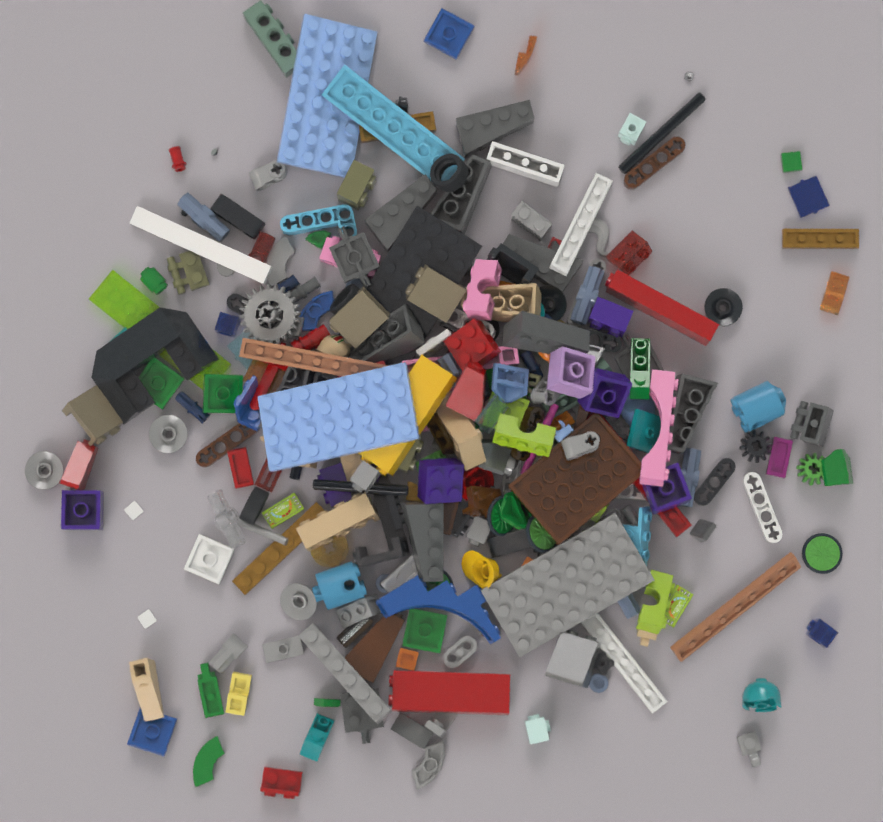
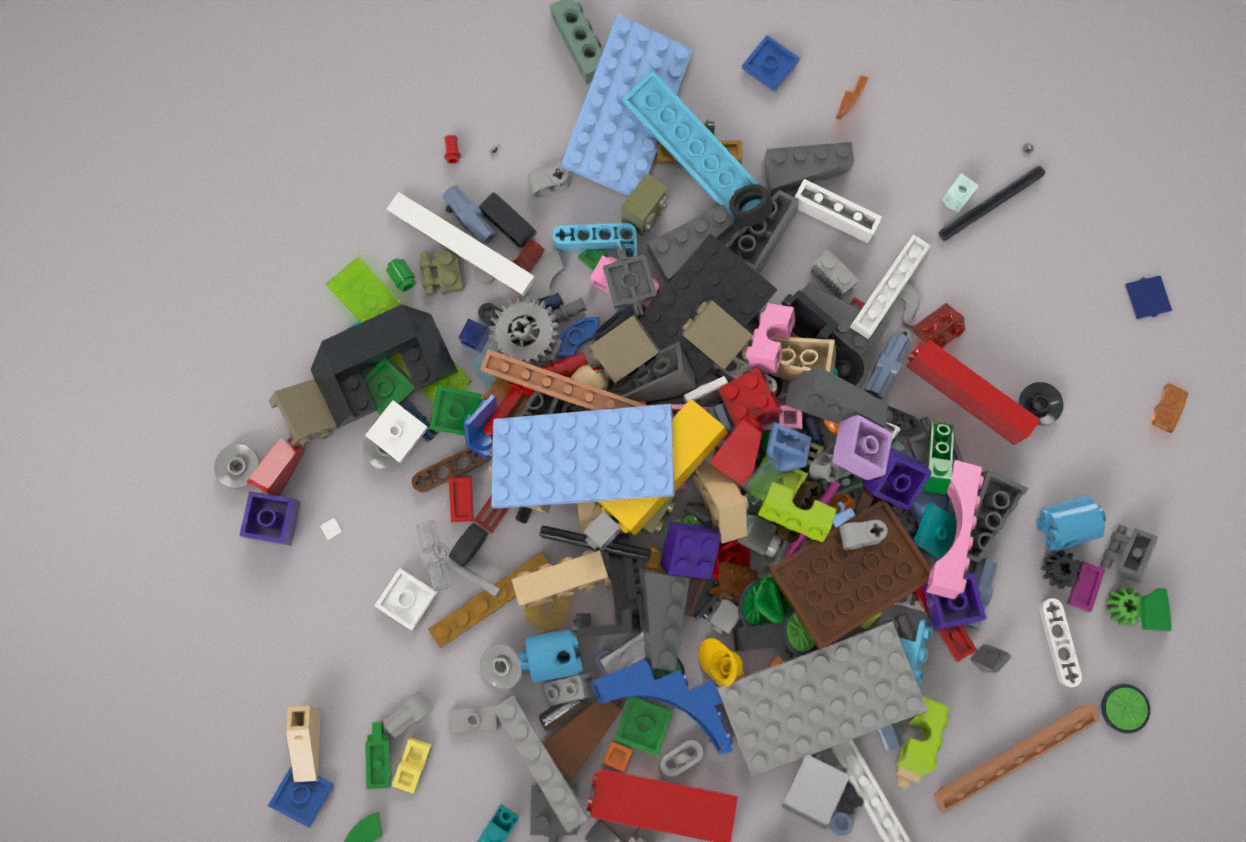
camera: 10 degrees right, 5 degrees down
(146, 618) = (322, 657): white sticker -> none
(176, 419) = (397, 431): none -> white plate
(283, 510) = (501, 556): lime tile -> none
(327, 702) = (514, 793): green tile -> none
(336, 473) = (570, 522): dark purple brick -> none
(441, 435) = (698, 497): dark brown slope -> none
(609, 317) = (911, 393): dark purple brick -> none
(656, 165) = (979, 233): reddish brown beam -> none
(679, 601) = (952, 737): lime tile -> none
(710, 496) = (1014, 587): black beam -> none
(791, 161) = (1133, 256): green tile -> none
(820, 238) = (1159, 344): pearl gold plate -> none
(821, 632) = (1117, 806): clear blue brick -> none

